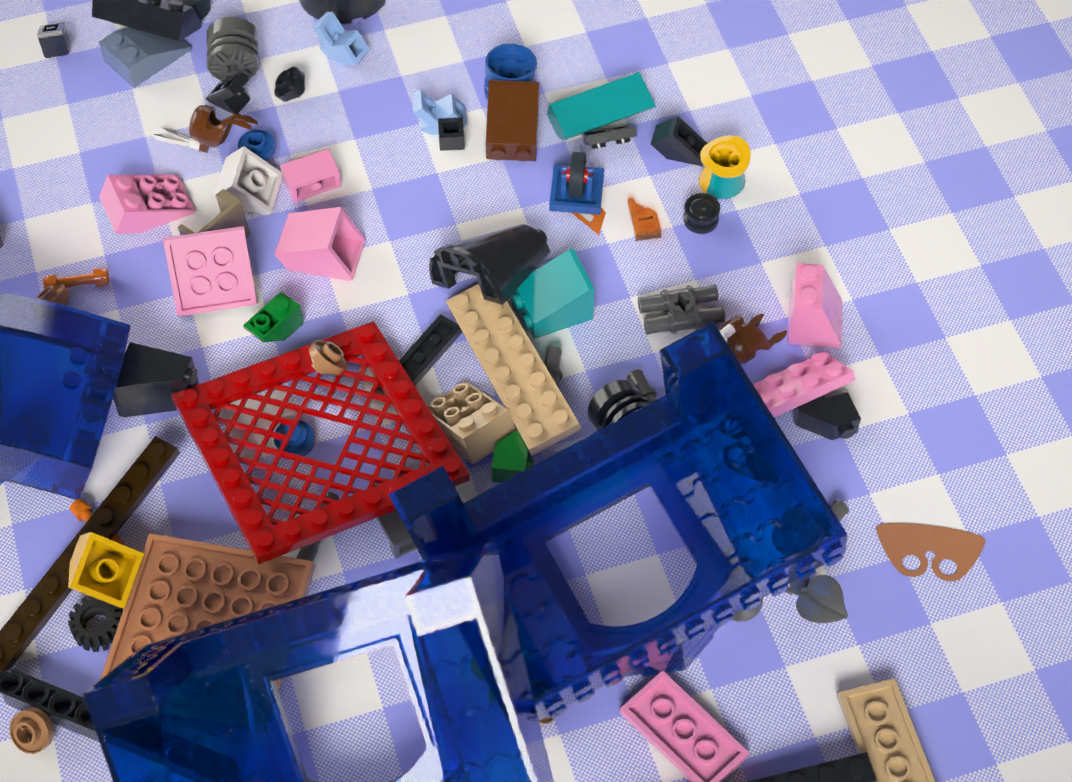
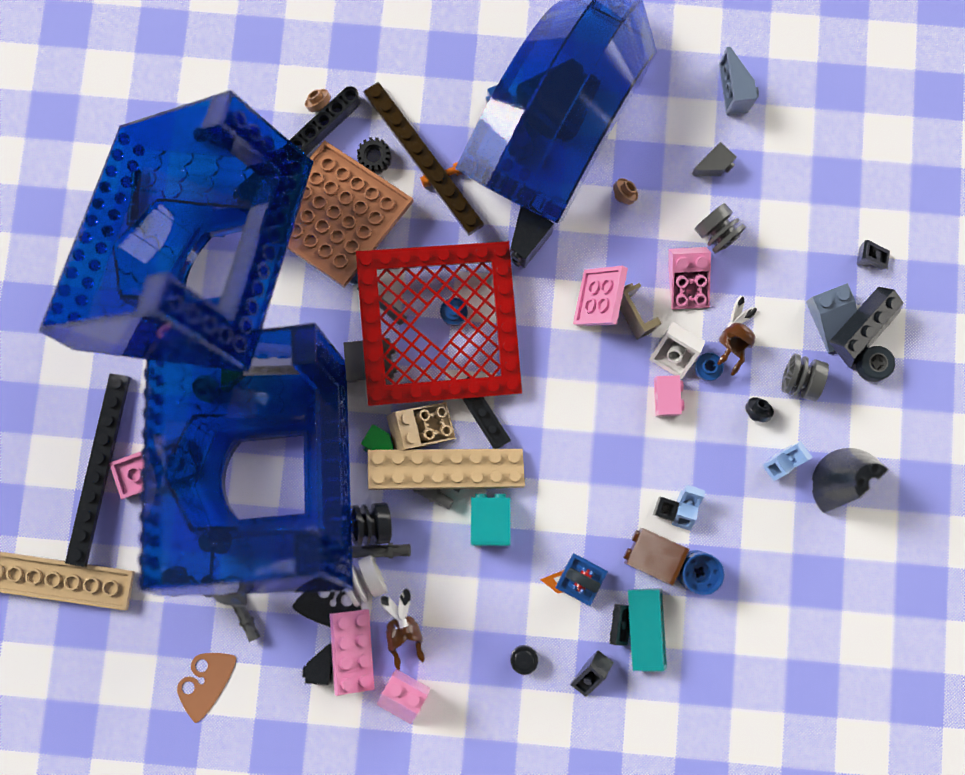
camera: 115 degrees right, 25 degrees up
(70, 182) = (720, 228): none -> dark grey wheel
(99, 277) = (637, 227): orange bar -> none
(103, 569) = (397, 164): yellow slope -> none
(230, 94) = (768, 364): black slope -> none
(276, 319) = (548, 327): green slope -> none
(321, 243) = (602, 380): bright pink slope -> none
(327, 358) = (493, 347): medium nougat plate -> none
(497, 259) = (530, 491): black cone -> none
(644, 221) = (537, 616): clear orange tile -> none
(681, 309) = (441, 597): dark grey pin -> none
(724, 166) = (553, 694): yellow hat -> none

